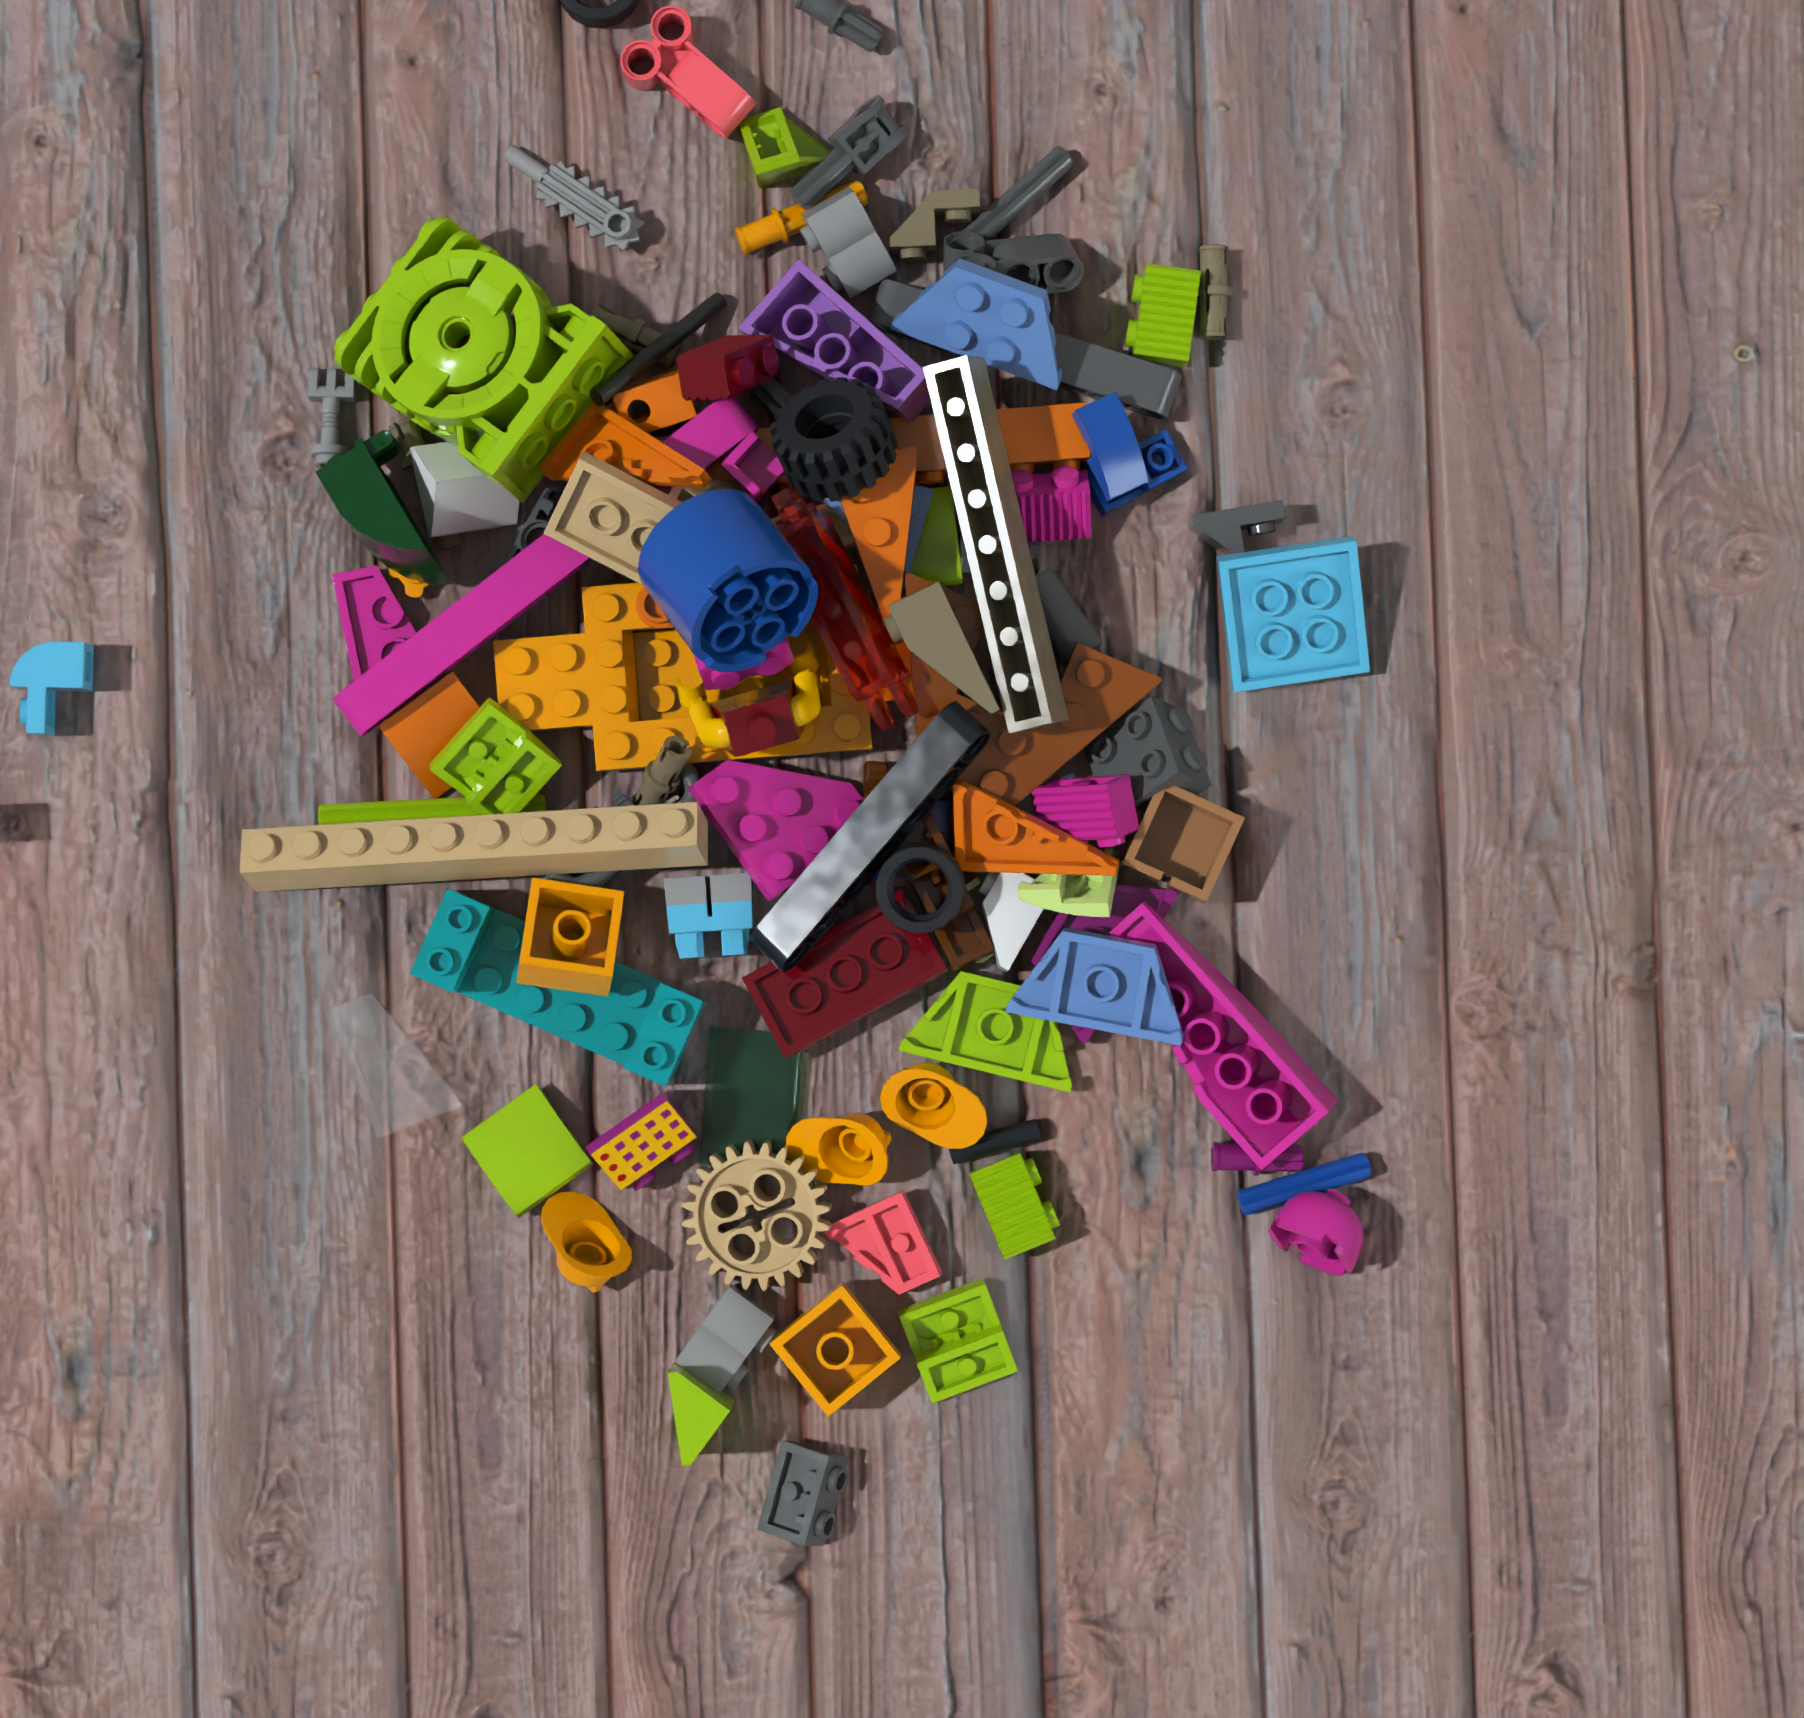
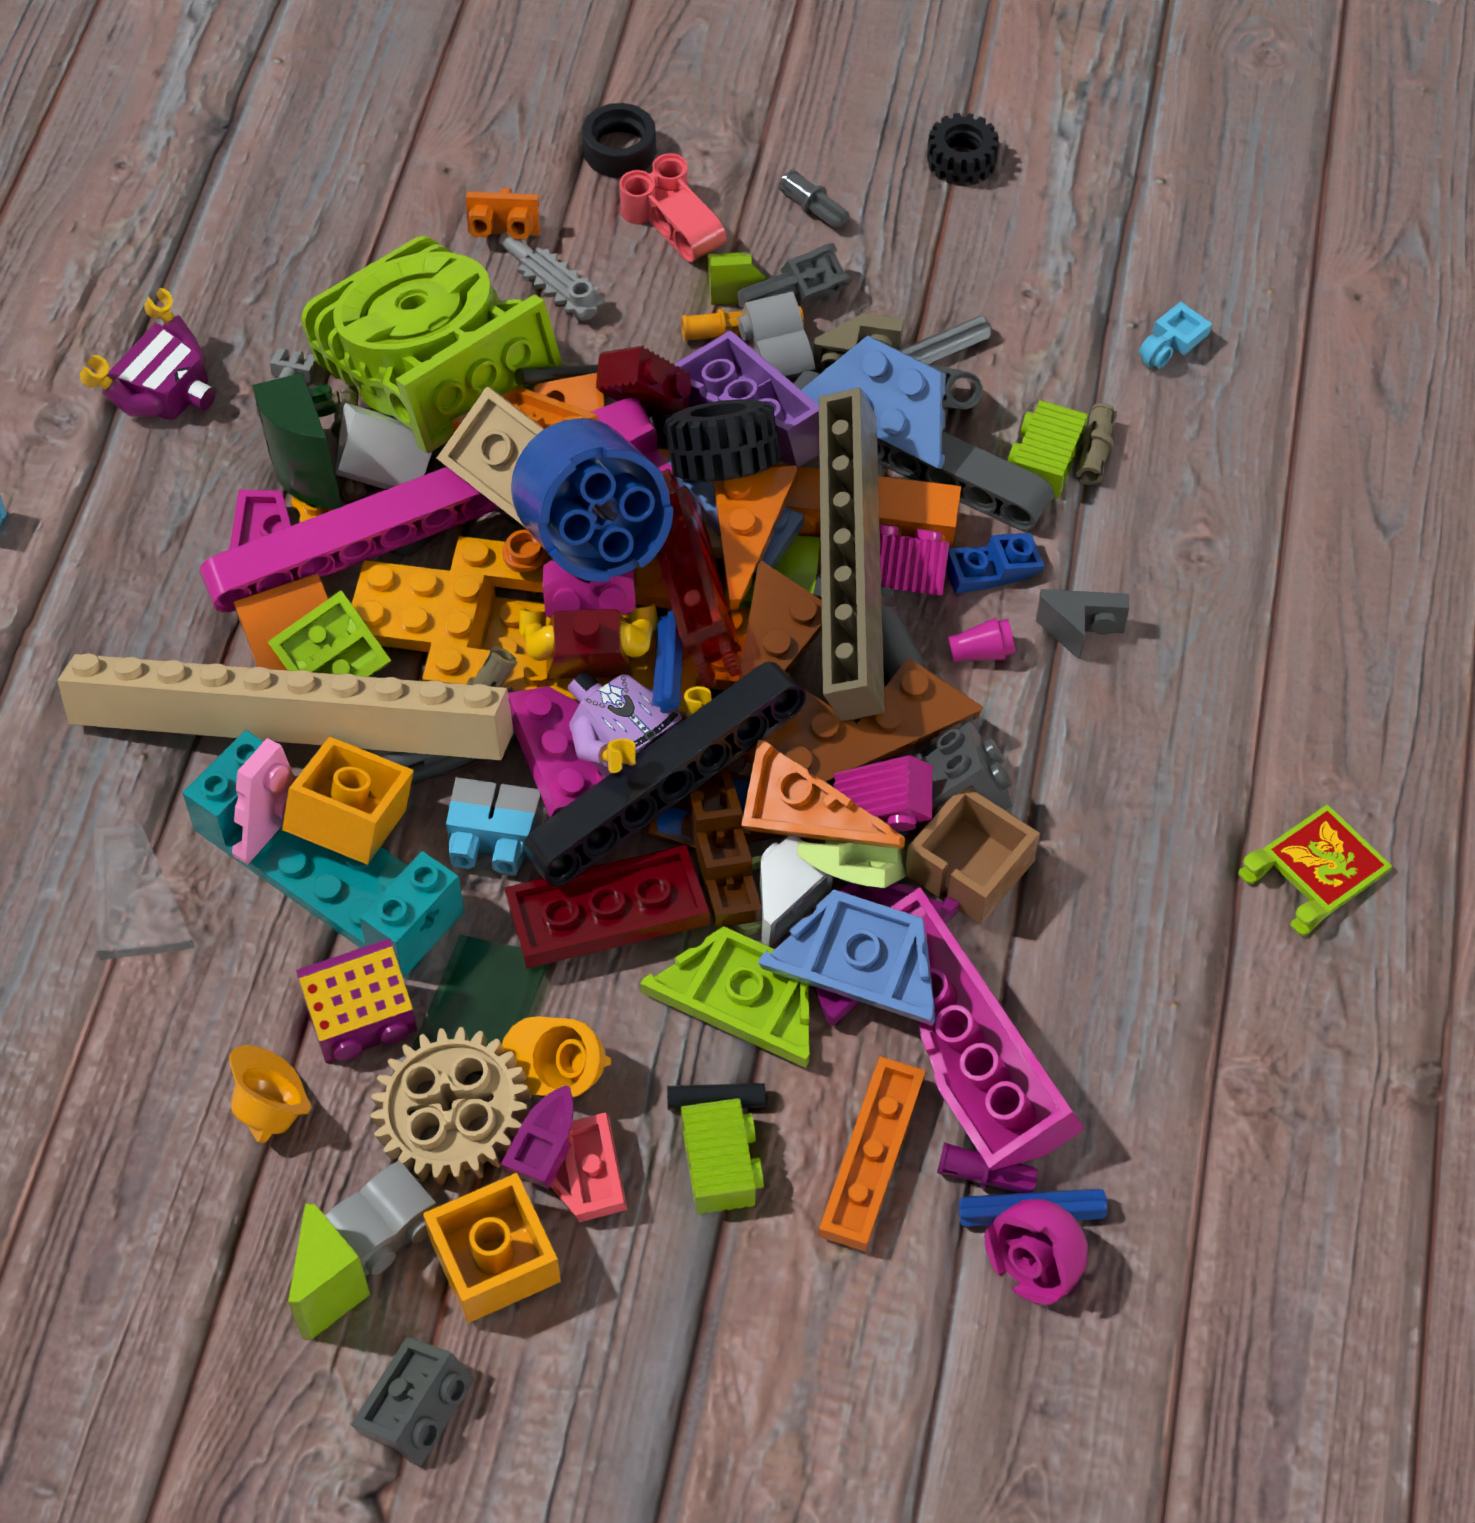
camera: 15 degrees right, 30 degrees down
(194, 440) = (159, 371): none -> magenta torso
(490, 955) = (262, 798): none -> bright pink wing
(497, 125) = (503, 213): none -> orange hips
(527, 1150) = (240, 999): lime slope -> none
(816, 792) = (620, 719): none -> torso
(843, 721) = (667, 664): none -> blue axle
(852, 1237) = (542, 1139): none -> magenta plate
(909, 921) = (693, 790): black tyre -> none
(934, 1106) = (661, 1036): light orange piece -> none
(935, 636) = (775, 610): dark tan slope -> none
(957, 1340) = (625, 1282): lime slope -> none
(1113, 446) = (979, 522): blue slope -> none
(1143, 579) = (983, 642): none -> dark pink cone
(1150, 1166) = (872, 1154): none -> orange plate
(1277, 117) = (1176, 329): none -> medium azure plate
(1293, 614) = (1121, 688): medium azure plate -> none
(1518, 754) = (1322, 861): none -> flag

